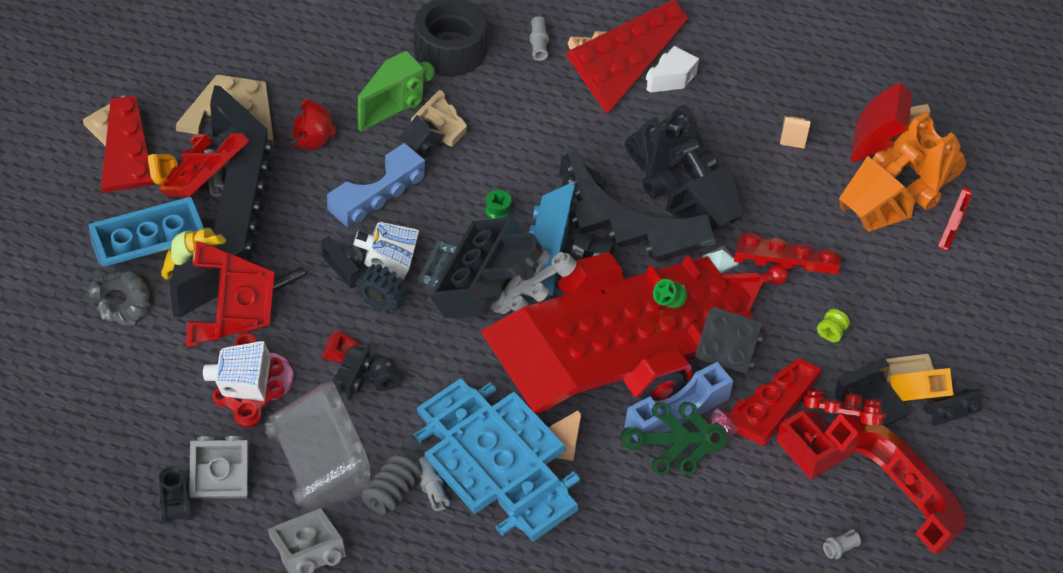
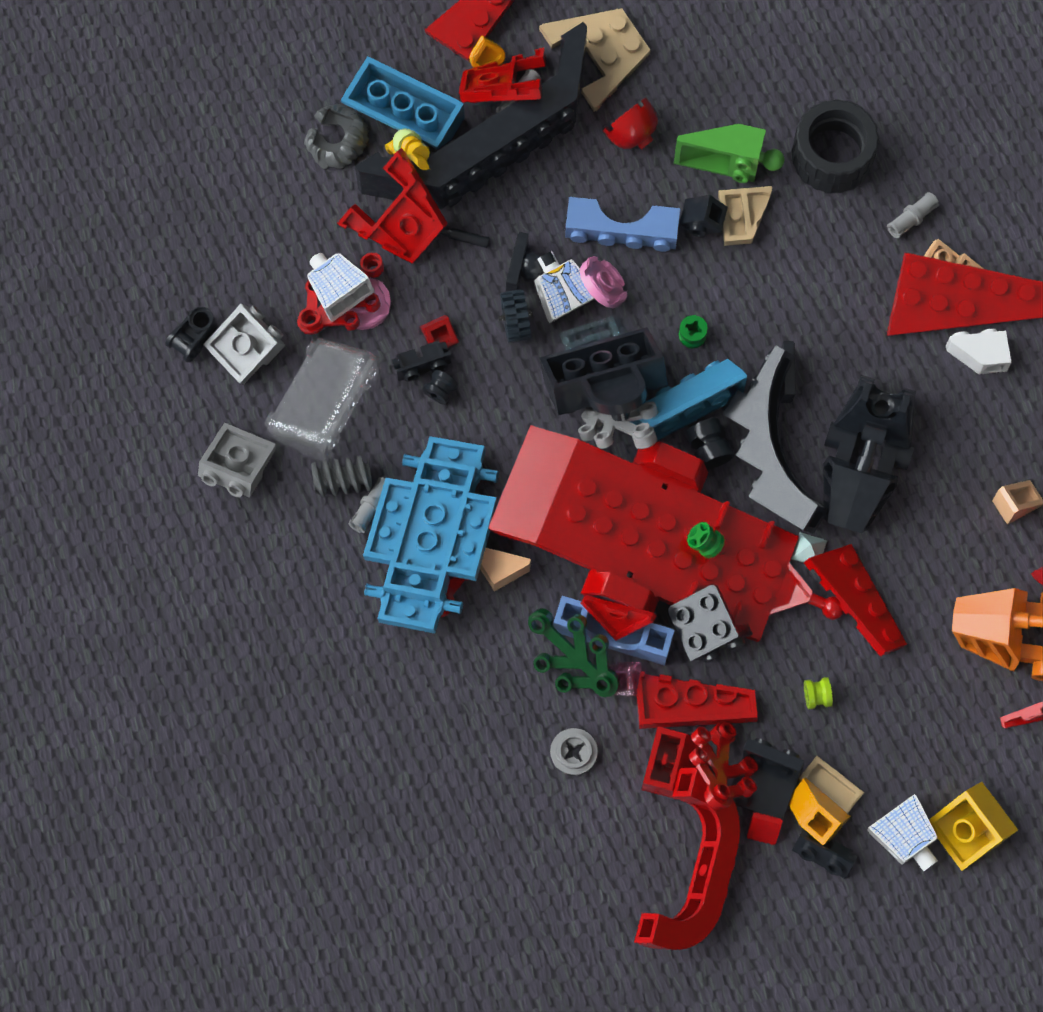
camera: 55 degrees right, 20 degrees up
(411, 222) = (603, 282): none -> bright pink tile
(679, 385) = (617, 618): none -> red tile
(755, 493) = (575, 738): none -> light grey gear
(836, 546) = (595, 860): light grey pin -> none
(906, 424) = (764, 828): none -> red slope
(980, 348) = (906, 833): none -> white torso
(1005, 312) = (972, 825): none -> yellow slope

